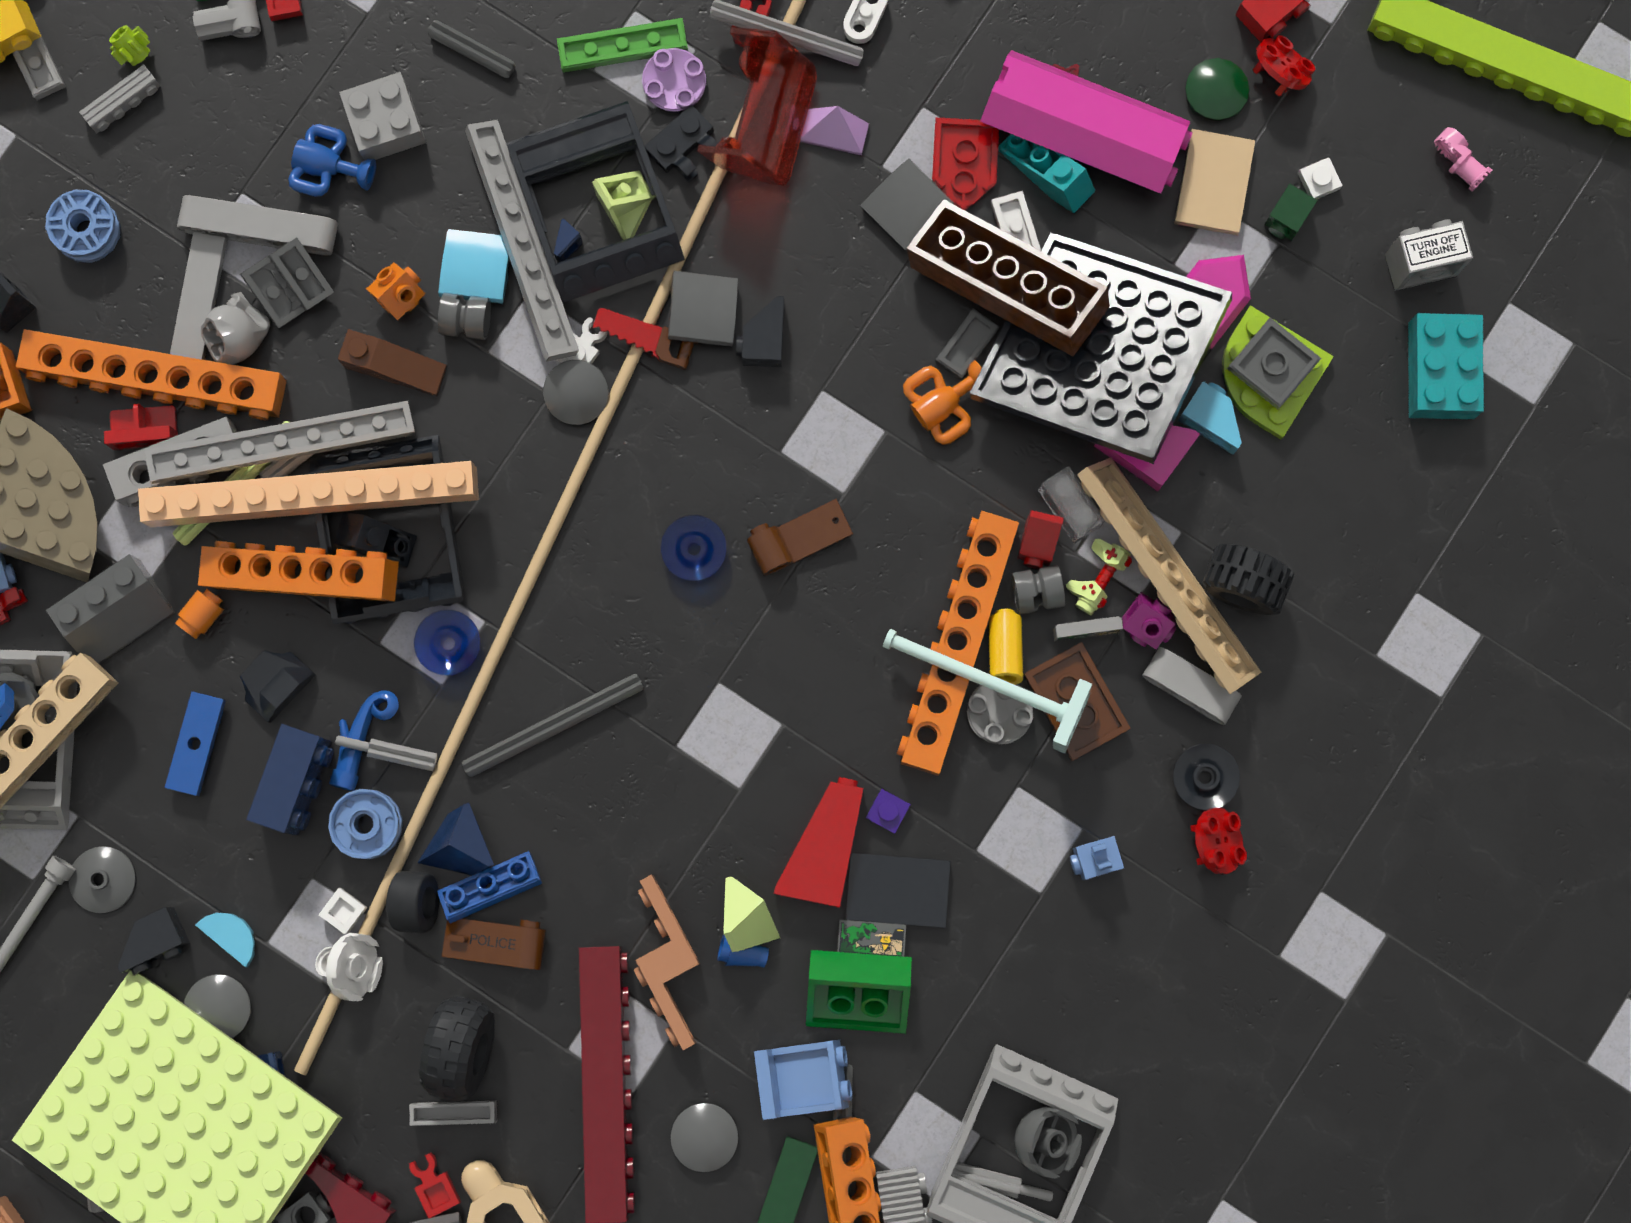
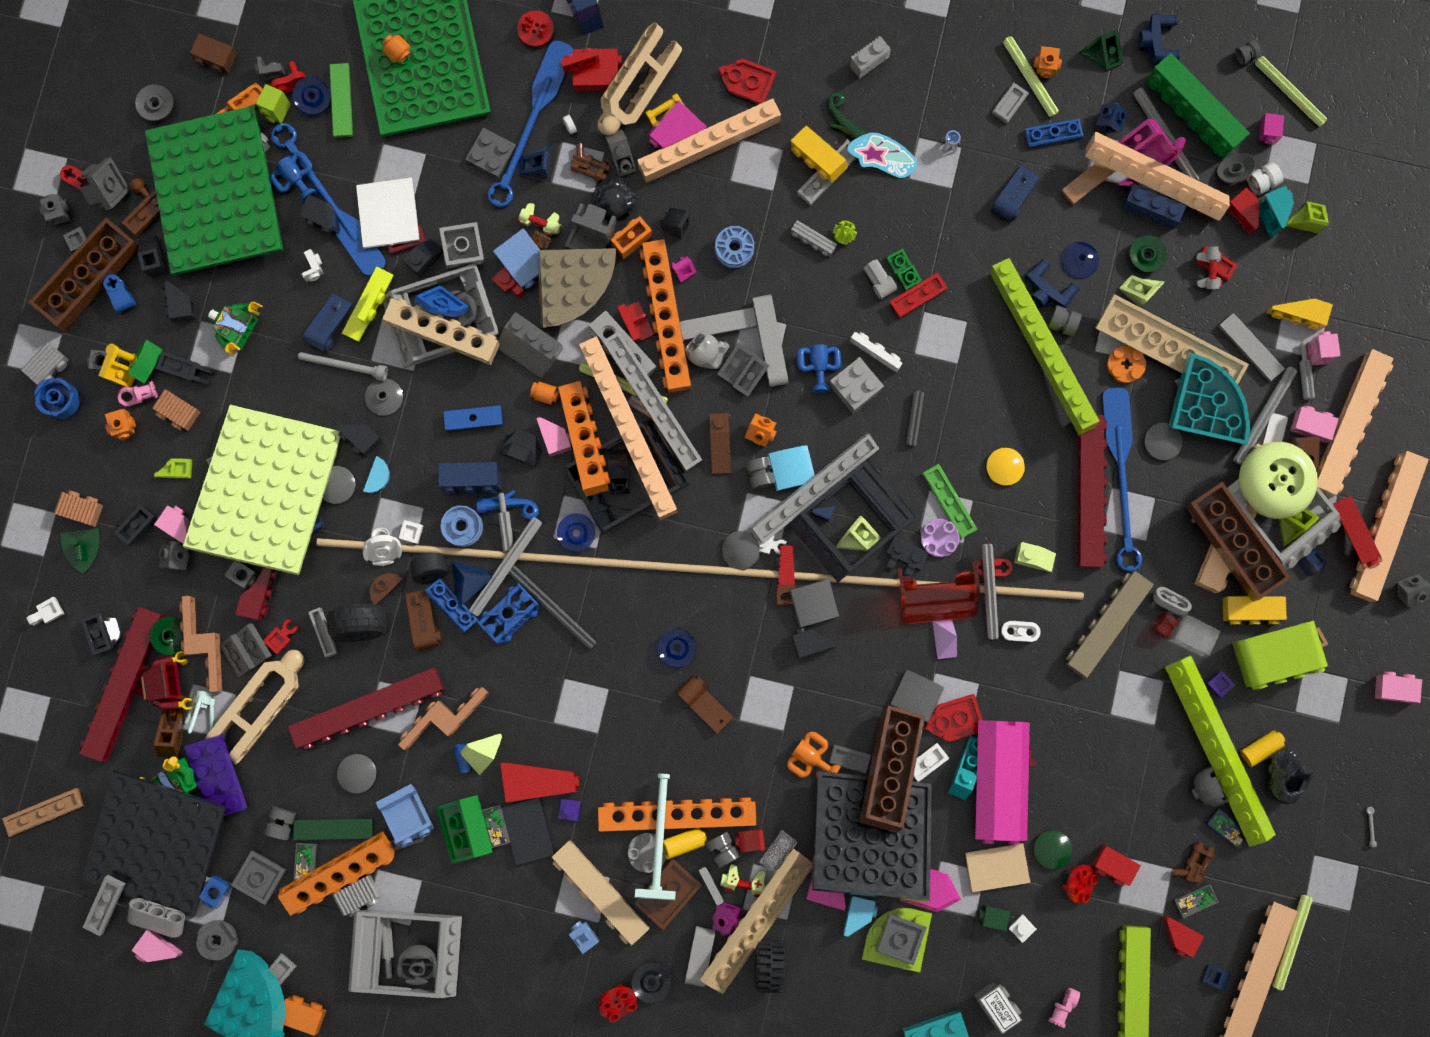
camera: 65 degrees right, 0 degrees up
(85, 318) = (683, 269): none -> dark pink tile
(278, 622) = (554, 437): none -> bright pink slope
(341, 67) = (876, 351): none -> white tile
(414, 986) = (383, 586): none -> reddish brown plate
(458, 775) = (505, 566): none -> light grey axle
(555, 795) = (516, 621): none -> blue piece
(1037, 806) = (600, 892): none -> tan brick

